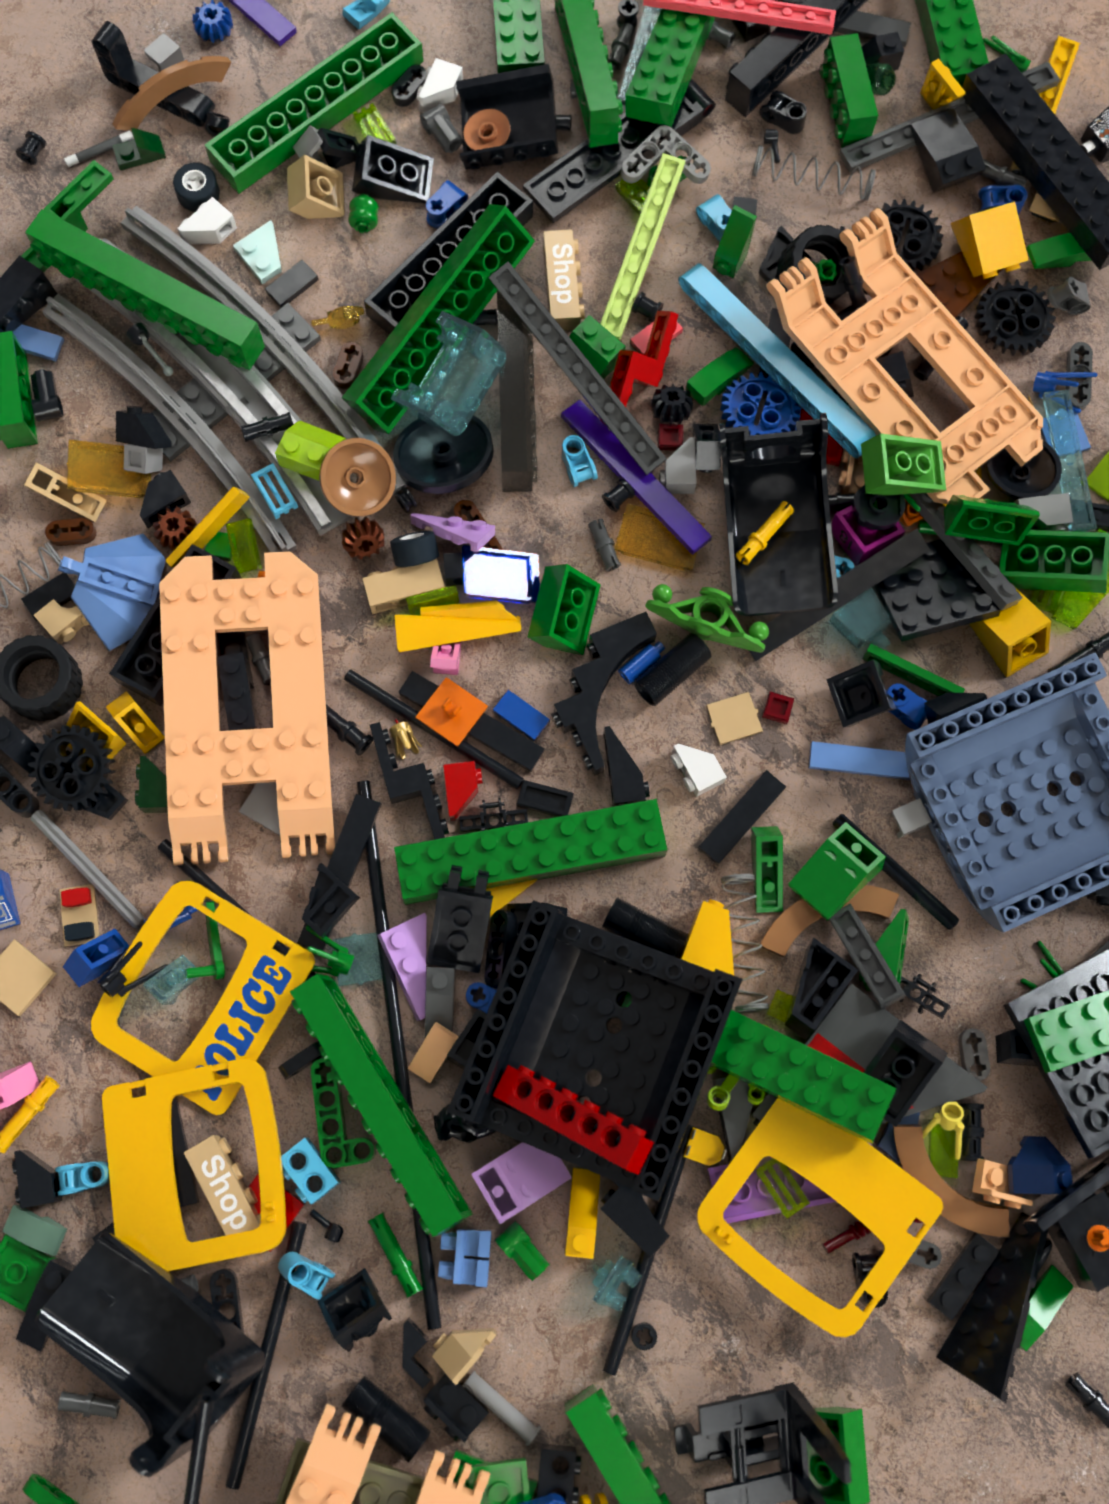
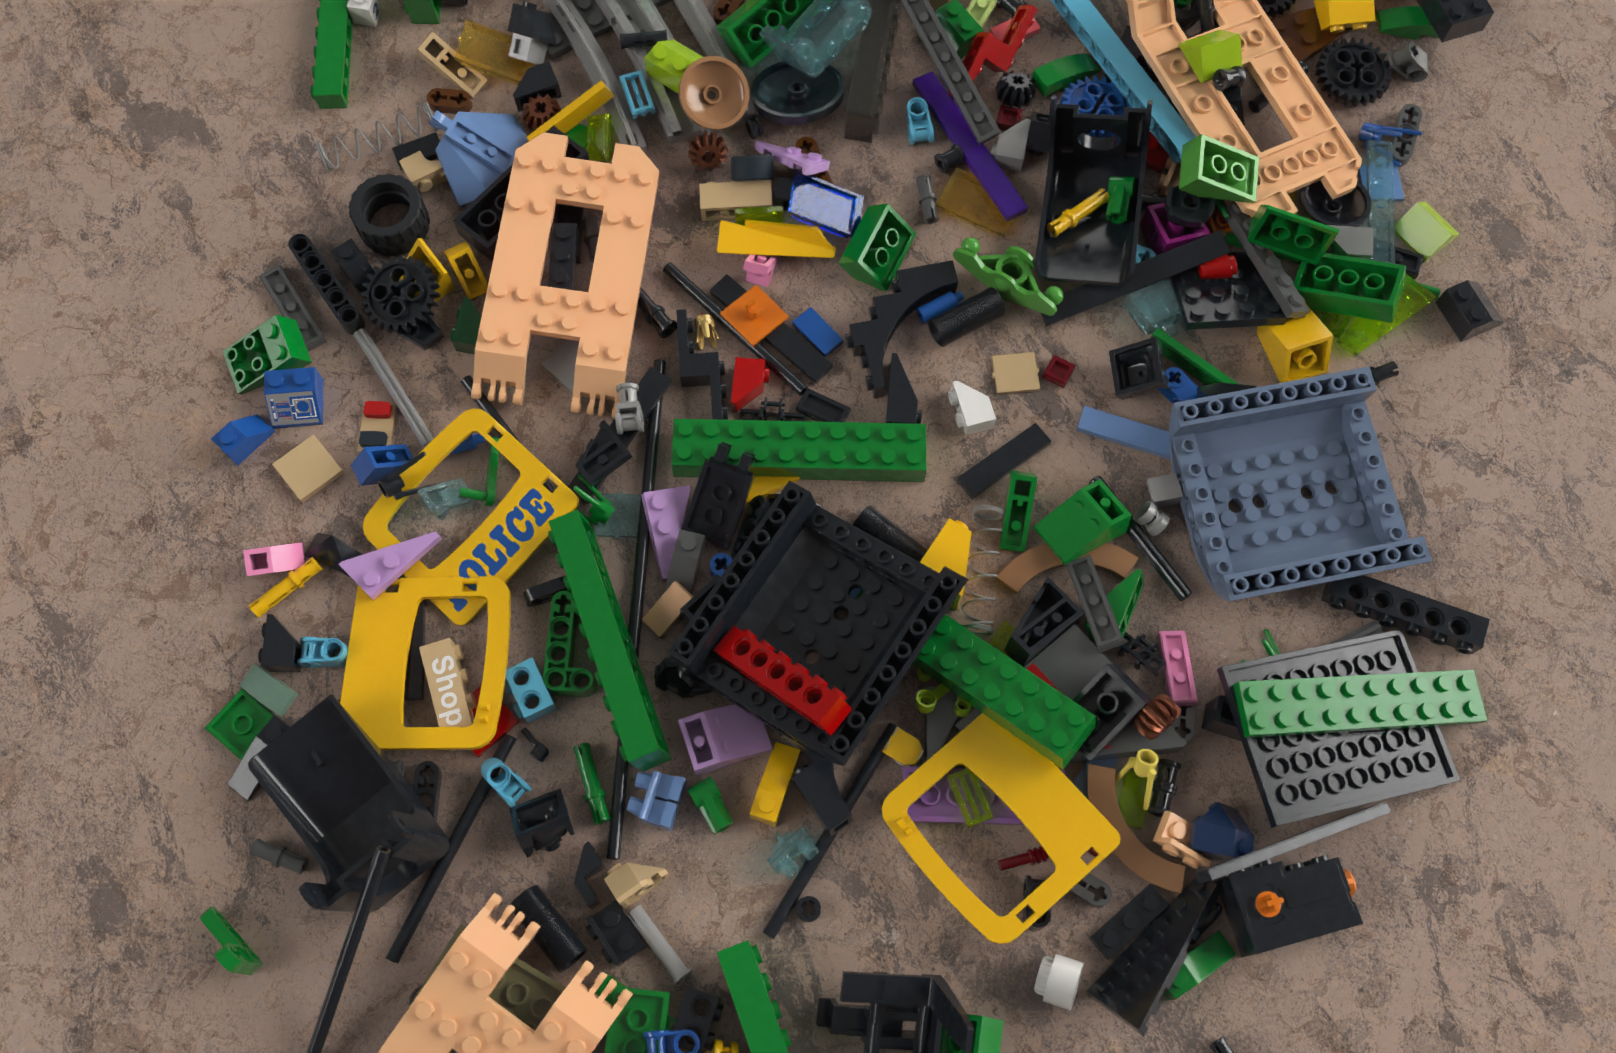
camera: 15 degrees right, 5 degrees down
(67, 1066) = (330, 551): none -> black slope
(122, 1073) = (382, 567): none -> lavender wing
(345, 852) = (628, 411): none -> light grey connector
(805, 503) = (1120, 193): none -> green piece
(872, 333) = (1212, 52): none -> lime slope
(893, 358) = (1229, 80): none -> black bush
(901, 849) = (1151, 518): none -> light grey wheel
(908, 1355) = (1059, 980): none -> white piece
(921, 568) = (1219, 268): none -> red cone
(955, 1070) = (1157, 716): none -> copper gear
(963, 1008) = (1178, 672): none -> bright pink tile

